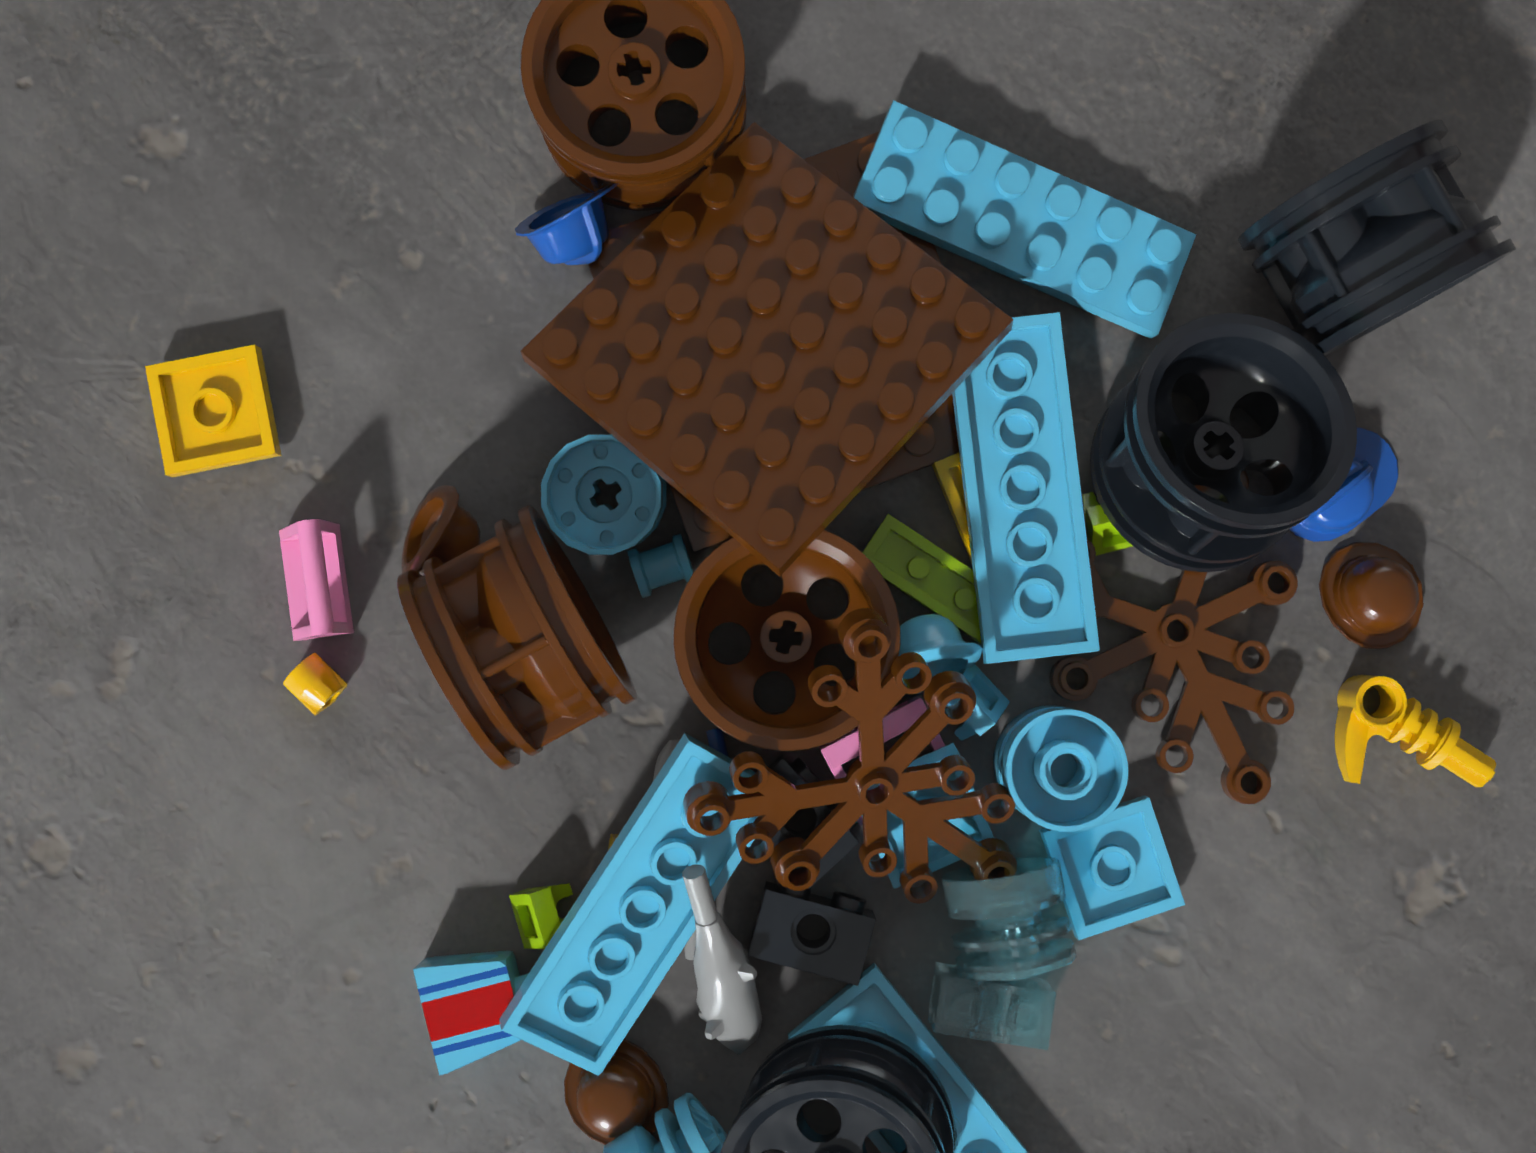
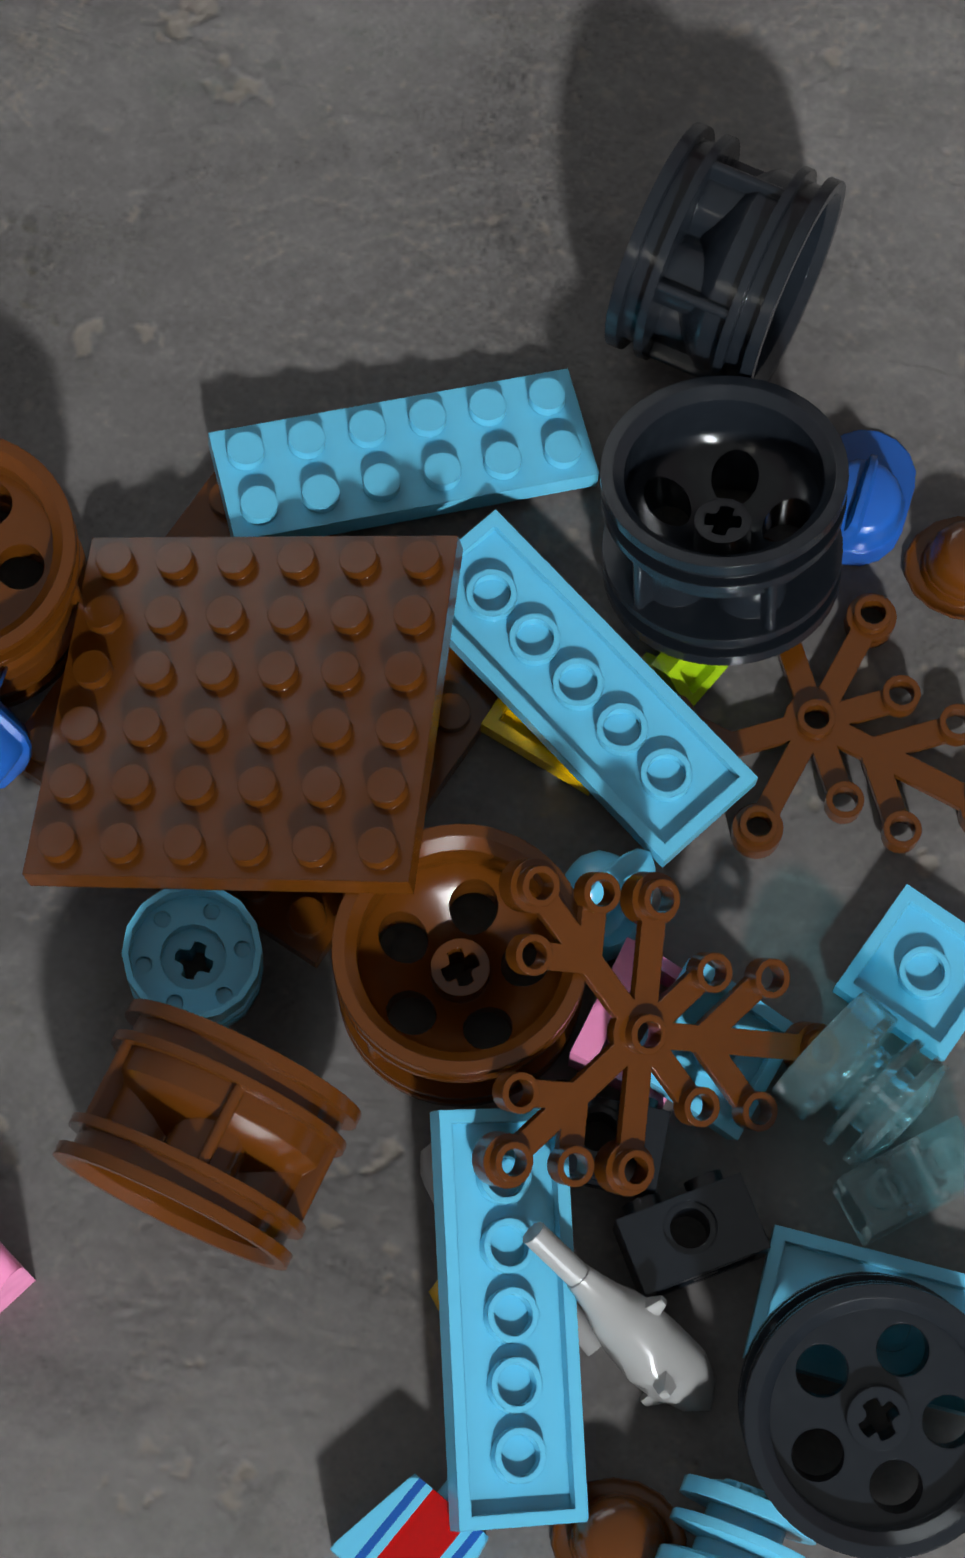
camera: 35 degrees left, 15 degrees down
(315, 683) = (33, 1350): yellow hose -> none
(439, 530) = (44, 1109): reddish brown hat -> none
(537, 913) = (413, 1415): lime tile -> none
(661, 565) = (294, 996): medium azure bush -> none
(925, 574) = (556, 824): lime plate -> none
(988, 707) = (692, 917): medium azure tile -> none
(1061, 767) = (804, 904): medium azure wheel -> none

